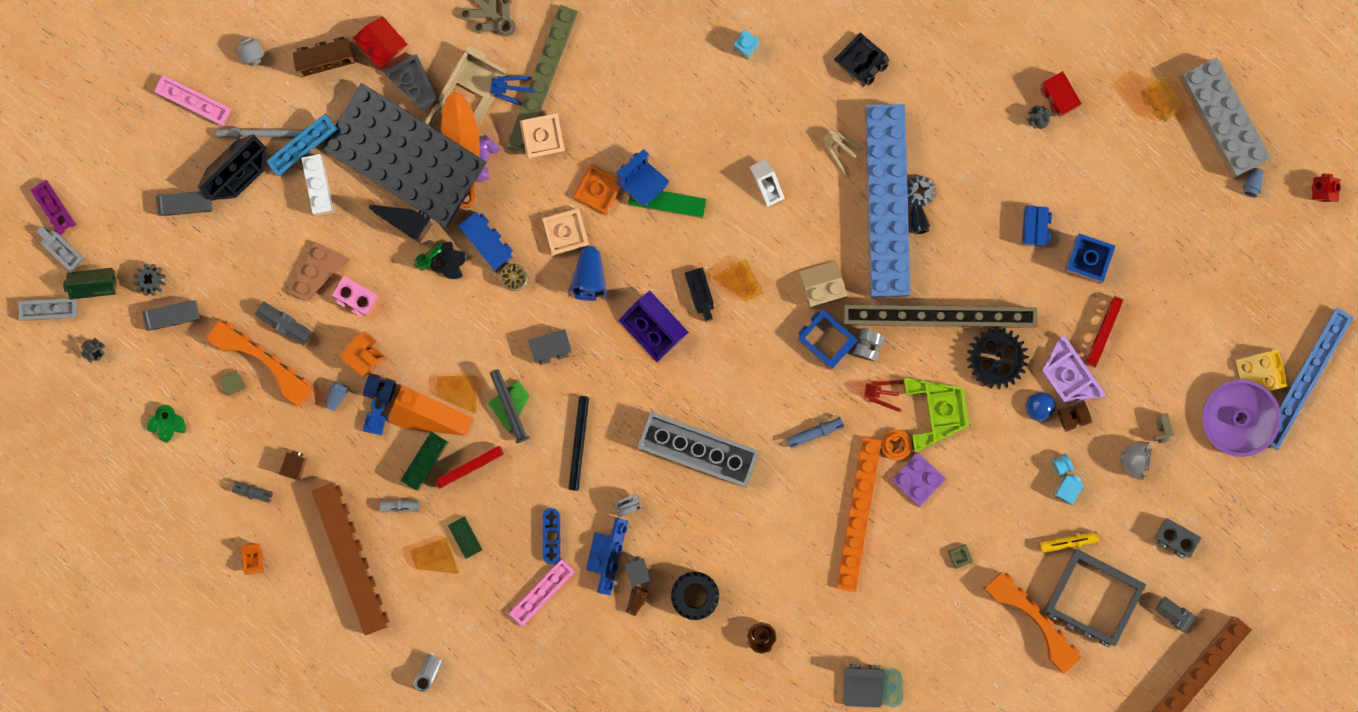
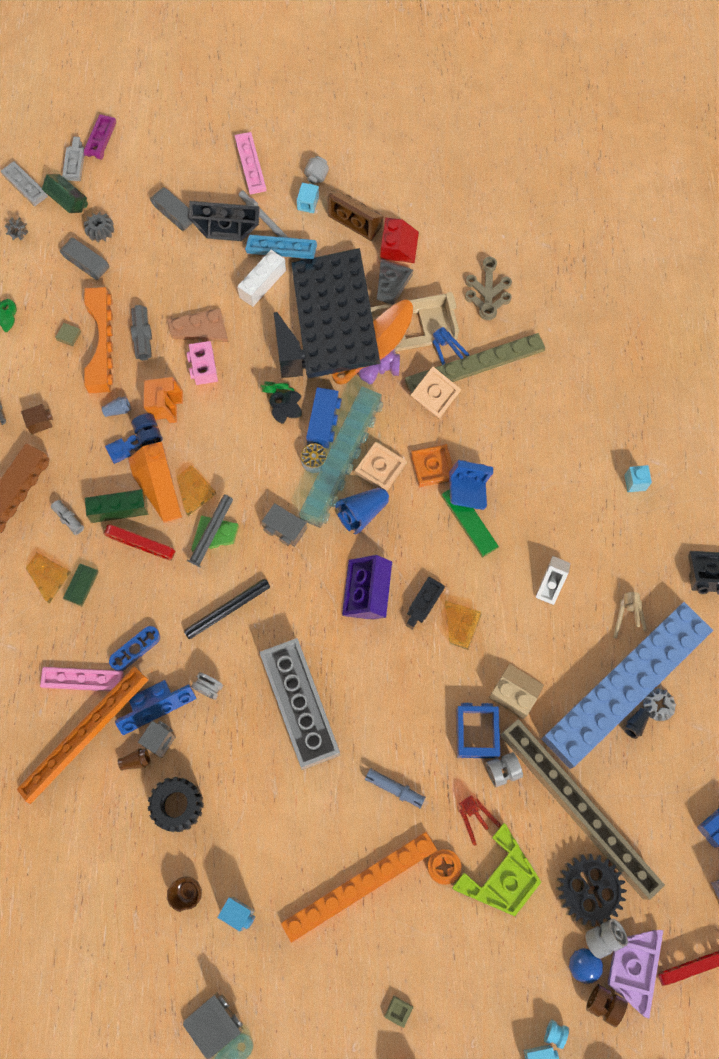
camera: 50 degrees right, 15 degrees down
(271, 81) = (307, 197): none -> medium azure brick
(531, 255) = (340, 458): none -> clear light blue brick
(586, 622) = (82, 735): none -> orange plate
(807, 612) = (237, 914): none -> dark azure brick
(918, 479) = (432, 912): medium lavender plate -> none
(1035, 377) = (606, 938): none -> light grey wheel

